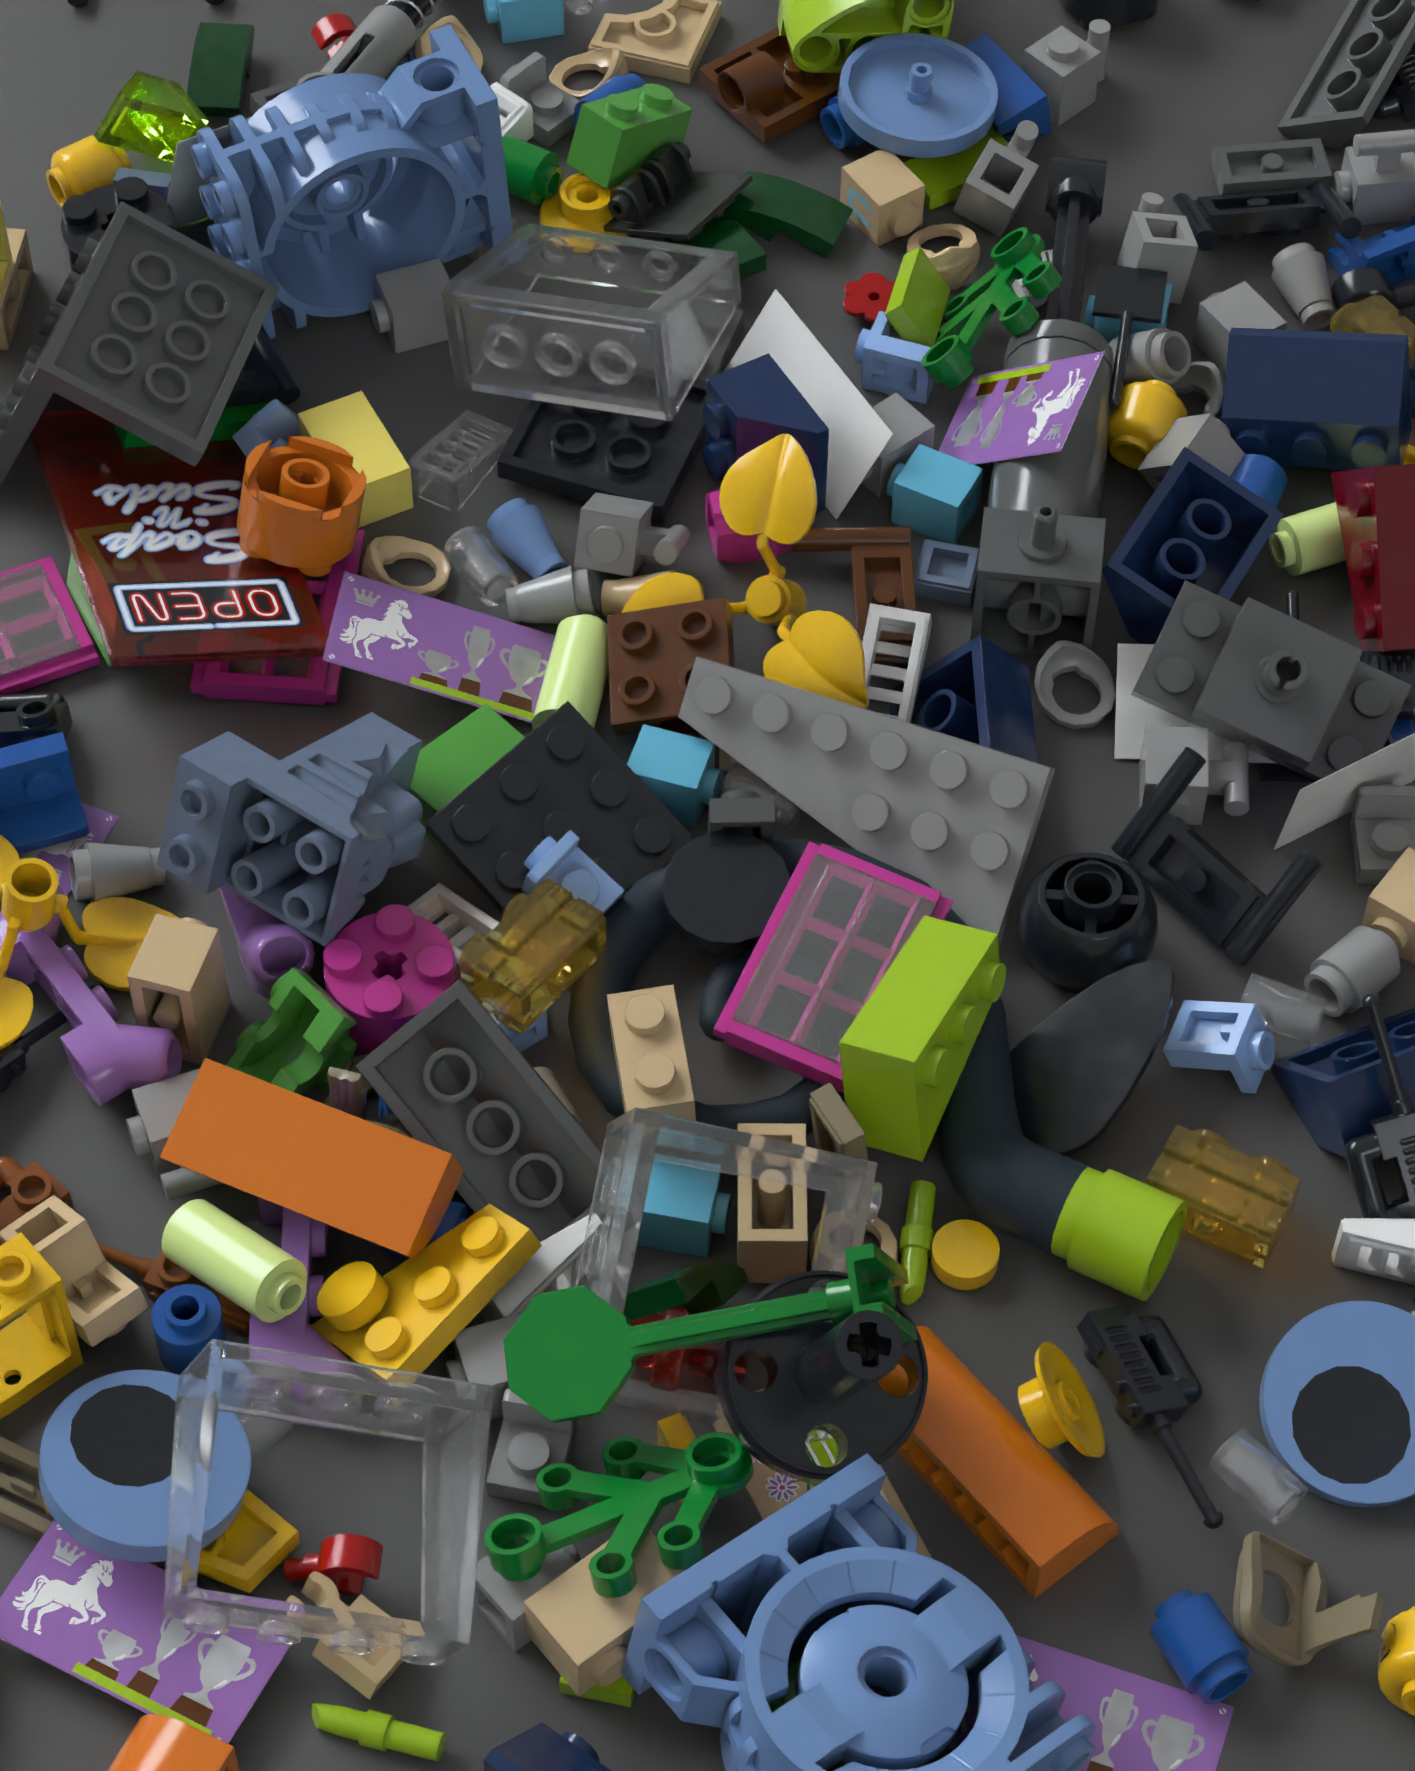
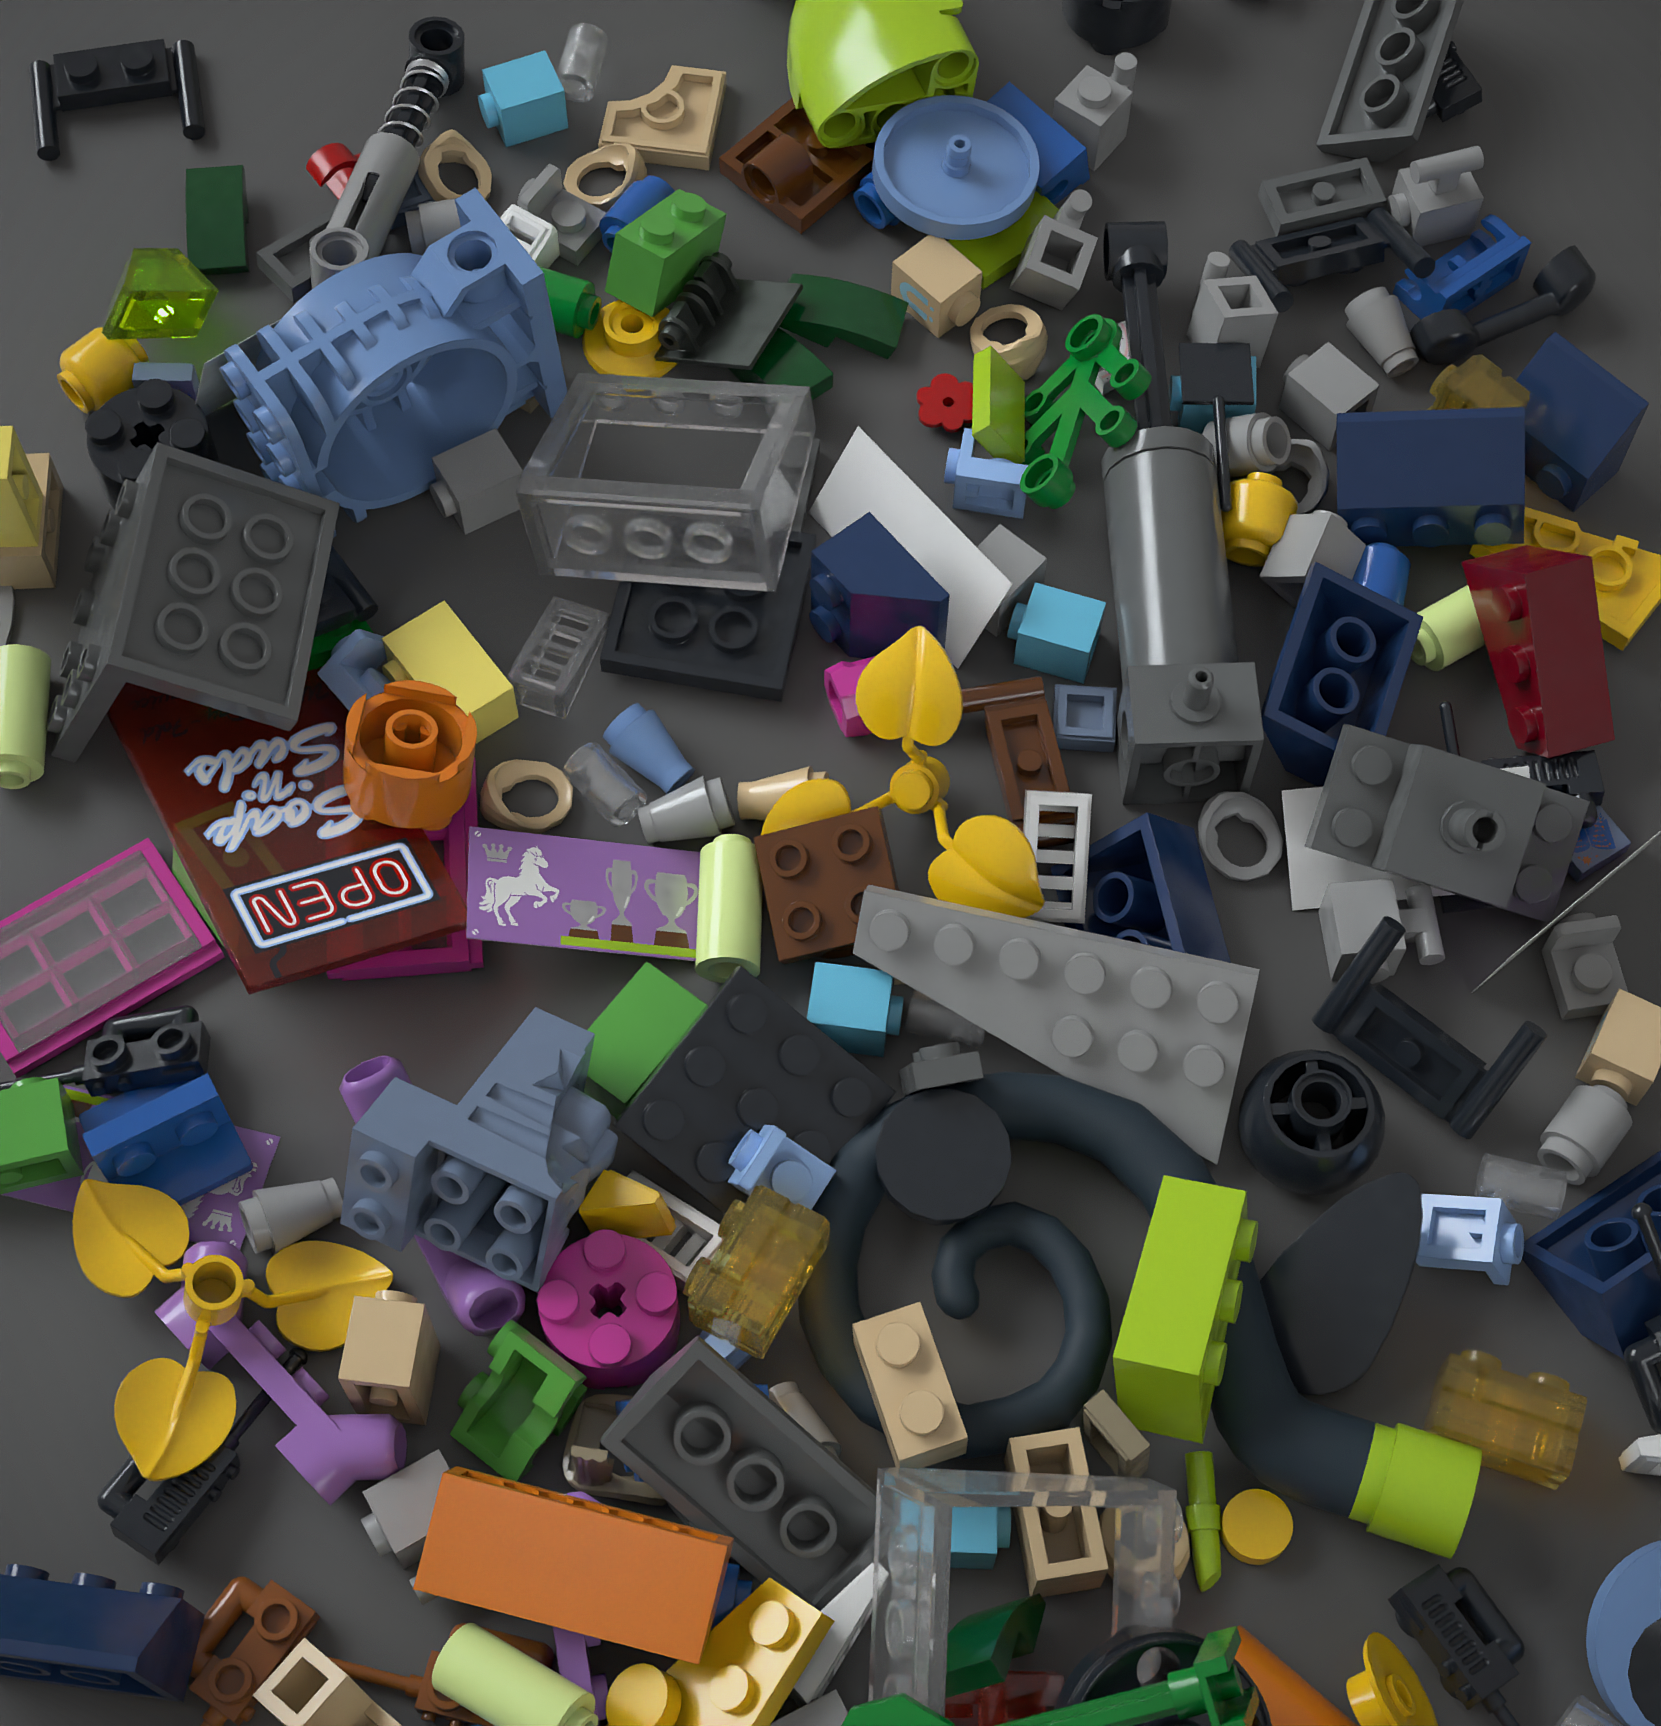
camera: 10 degrees left, 10 degrees up
(426, 895) = (626, 1208): none -> yellow slope
(618, 536) = (744, 732): light grey brick -> none
(822, 960) = (1067, 1231): clear piece -> none
(1019, 410) = (1139, 542): medium lavender sticker -> none

